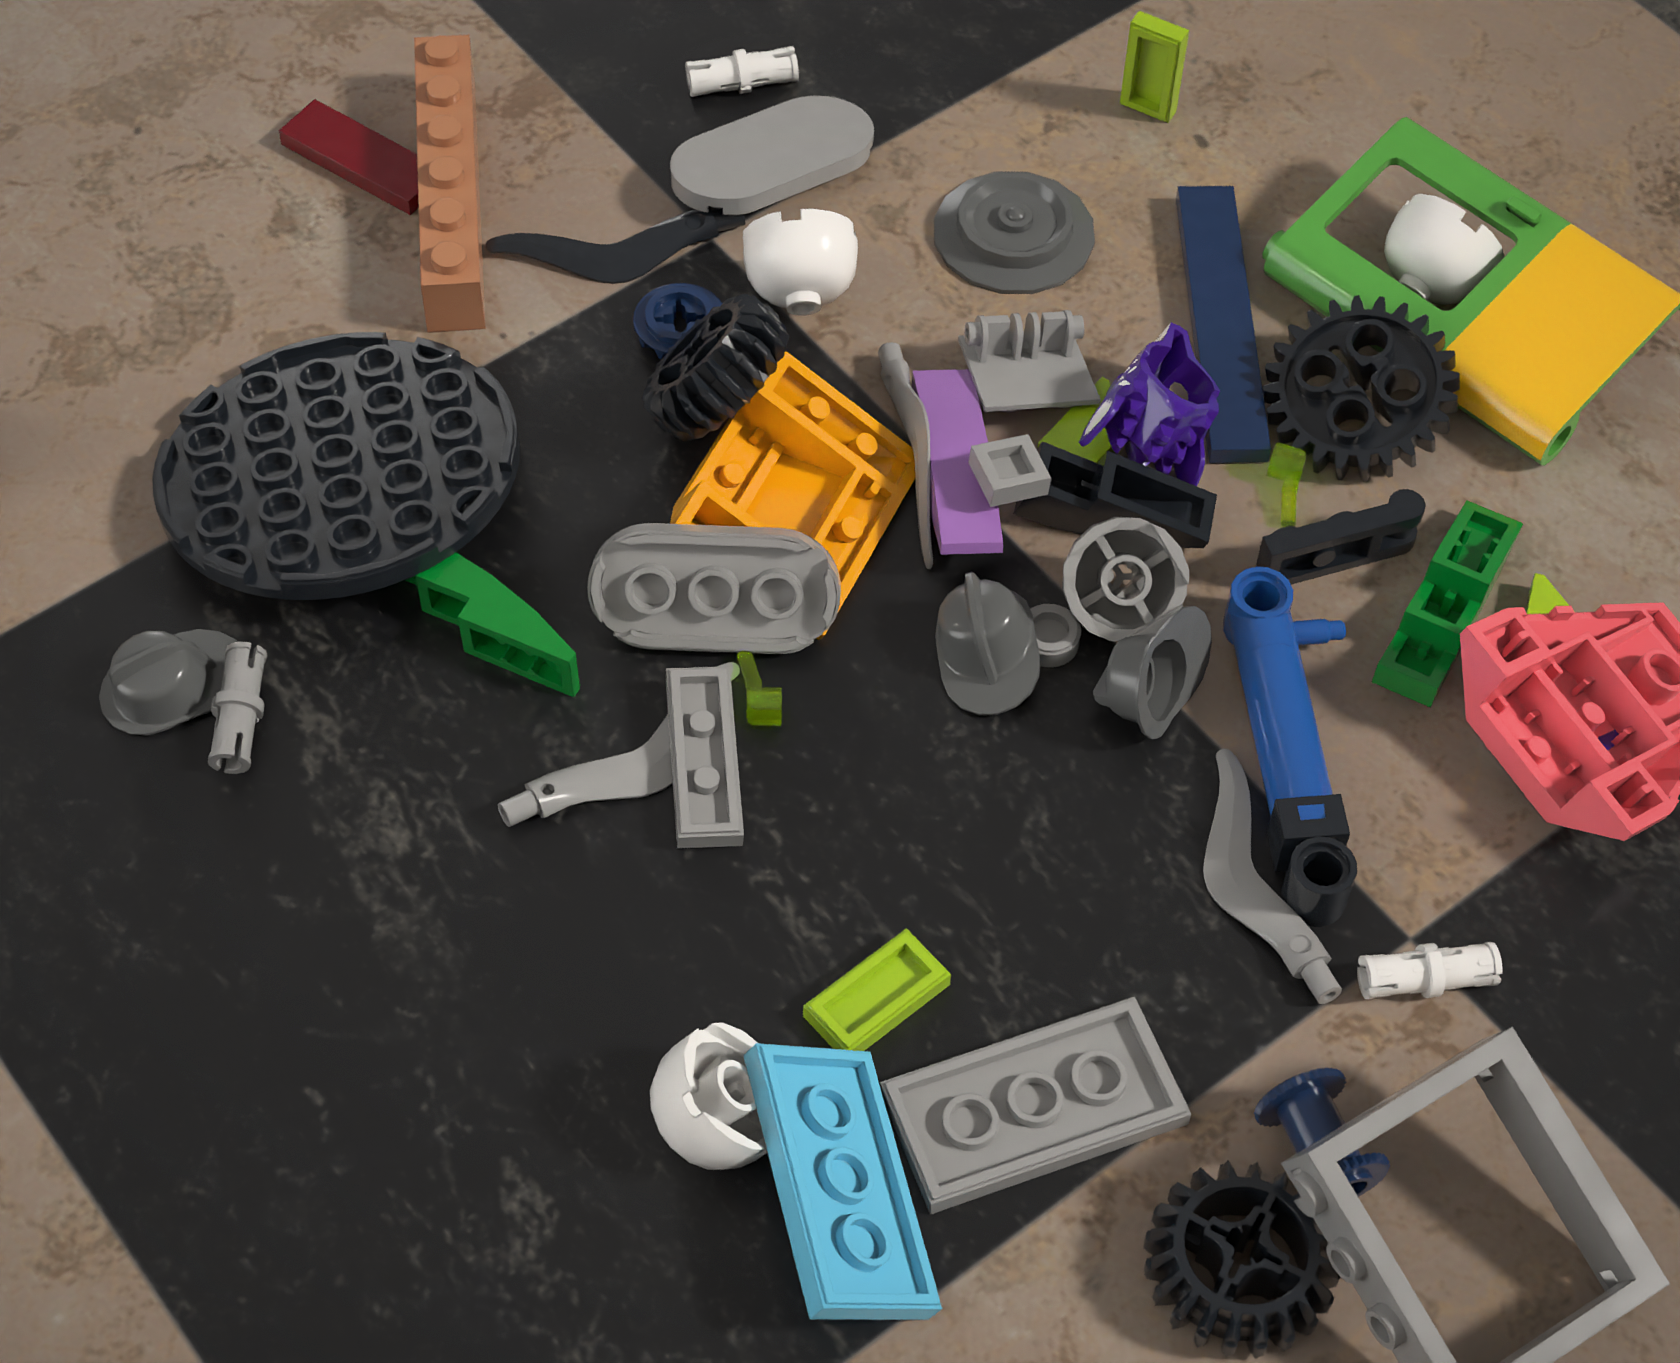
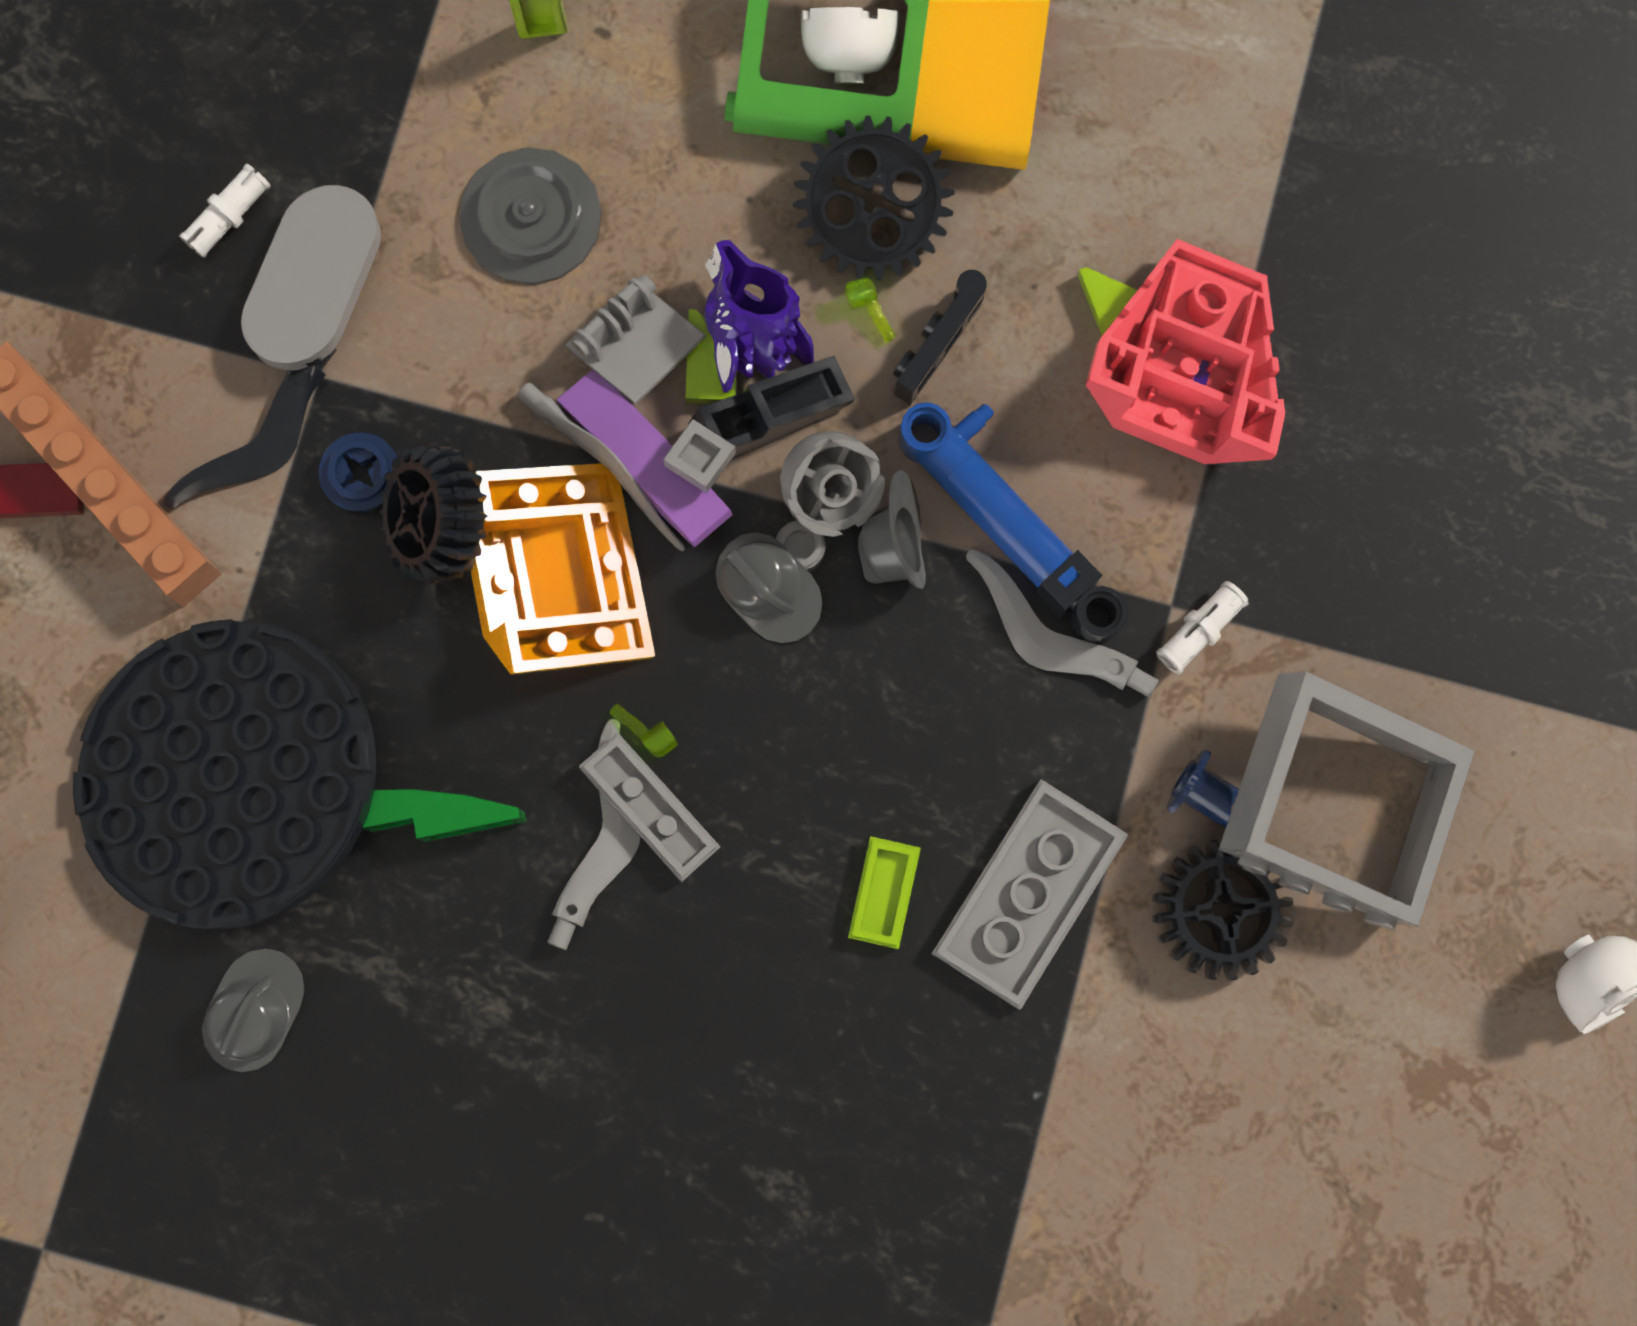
camera: 40 degrees left, 25 degrees up
(237, 708) = (318, 1002): light grey pin -> none
(707, 1100) = (856, 1048): white cylinder -> none
(714, 588) = (567, 687): light grey tile -> none
(800, 260) = (415, 369): white cylinder -> none
(841, 1184) = (963, 1042): medium azure tile -> none
(1223, 321) = (730, 191): dark blue tile -> none
(1446, 603) = (1038, 333): green slope -> none

